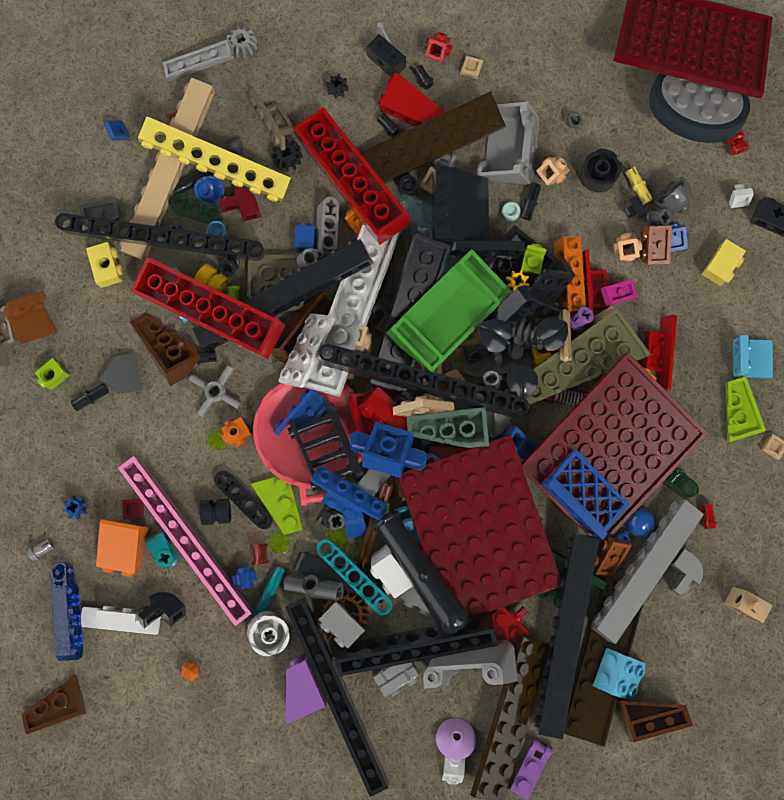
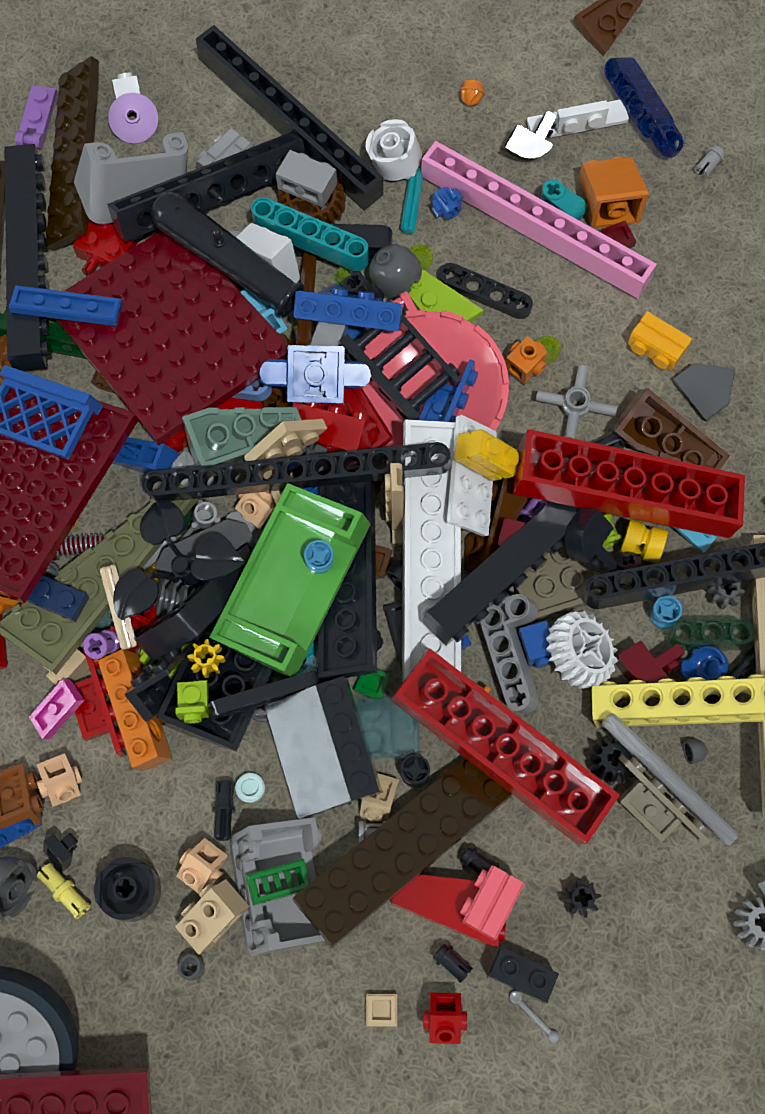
camera: 160 degrees right, 10 degrees down
(78, 511) = (690, 216): blue gear -> none
(89, 397) = (736, 346): black axle -> none
(140, 417) = (659, 341): none -> light orange brick
(215, 511) = (517, 261): black wheel -> none
(249, 283) = (585, 540): none -> black brick
(259, 131) = (670, 779): none -> light grey axle
(263, 552) = (434, 234): clear red bush -> none
(280, 221) = (581, 649): none -> white gear
(293, 351) = (486, 455): none -> yellow brick
(295, 307) = (508, 529): none -> dark red slope
(302, 532) = (394, 270): none -> dark grey cylinder
(302, 690) = (329, 100): medium lavender slope -> none
(313, 587) = (344, 212): dark grey piece -> none
(390, 91) = (492, 902): none -> coral brick
(429, 313) = (317, 552): none -> dark azure wheel
(503, 140) = (302, 877): none -> green slope
(548, 568) = (65, 305): none -> blue tile
(555, 139) = (211, 916): none -> tan brick
(601, 354) = (58, 598): none -> dark blue plate
(660, 217) = (22, 845): dark grey bush -> none

